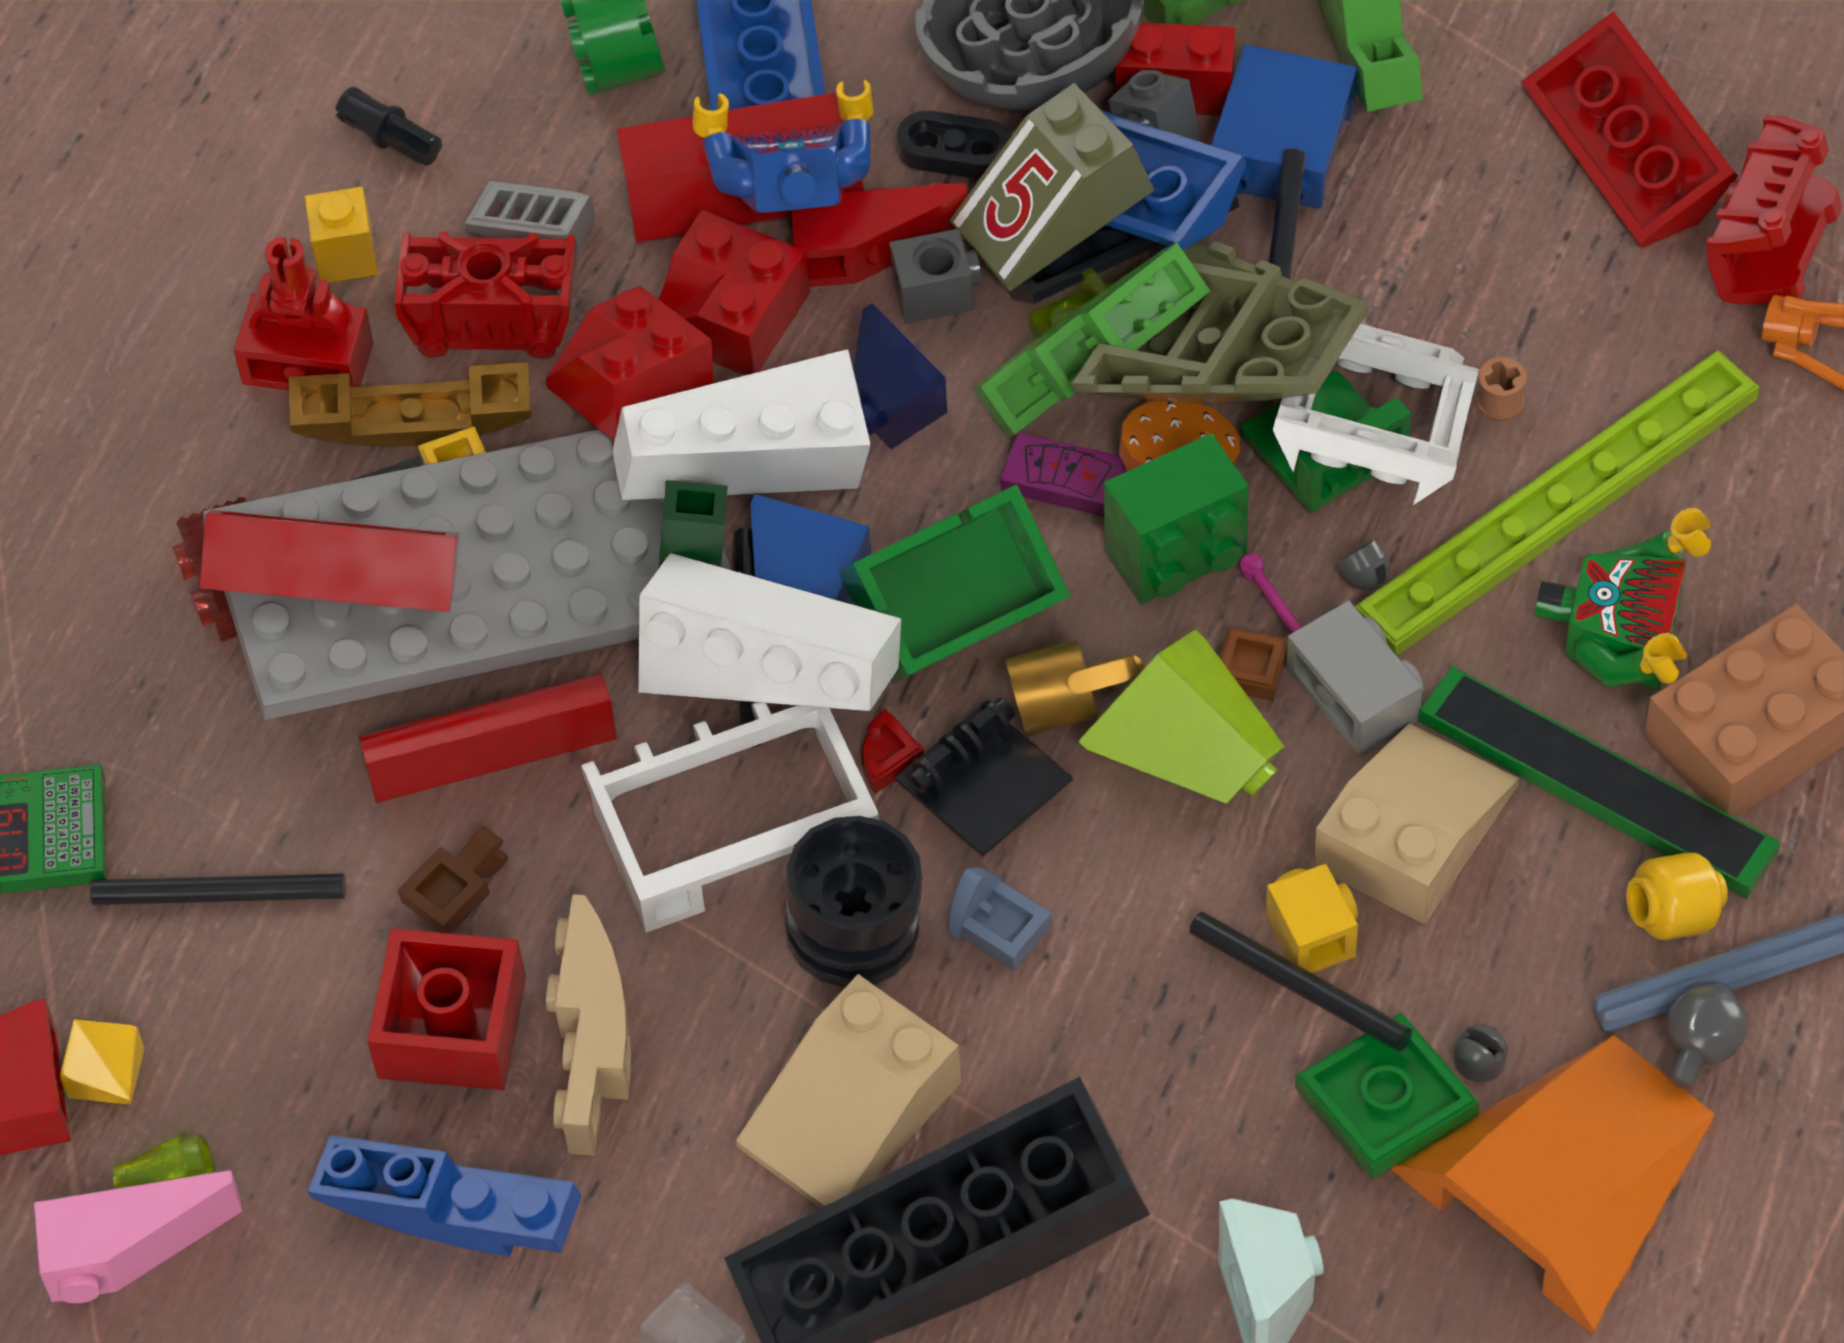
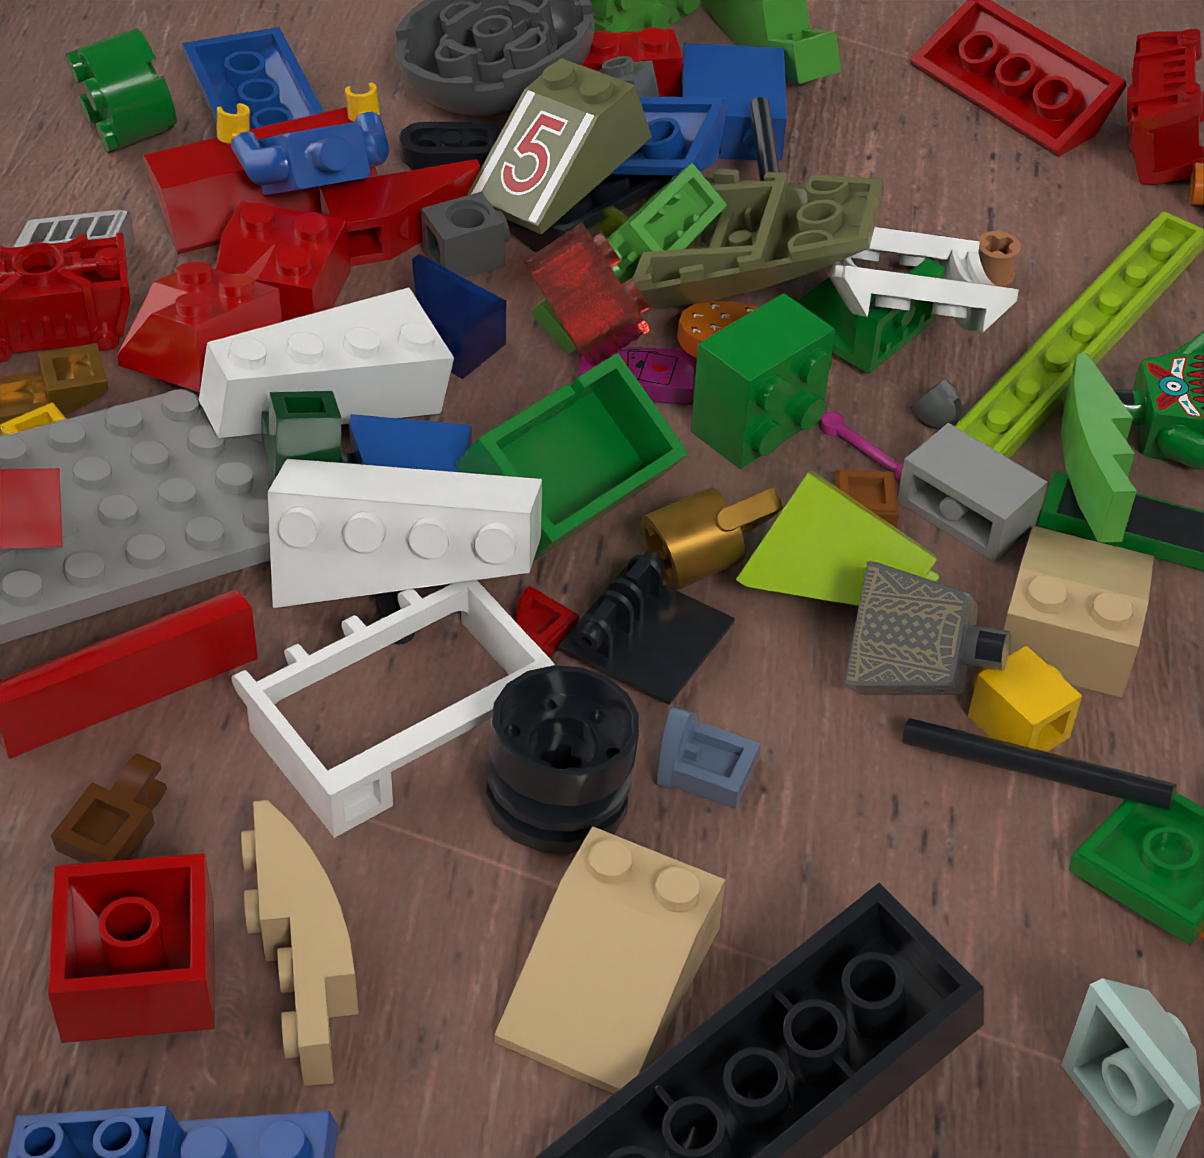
camera: 20 degrees left, 10 degrees down
(1024, 391) = (588, 294): none -> clear red brick
(1222, 835) = (918, 637): none -> dark grey torso
(1497, 646) = (1097, 450): none -> bright green slope

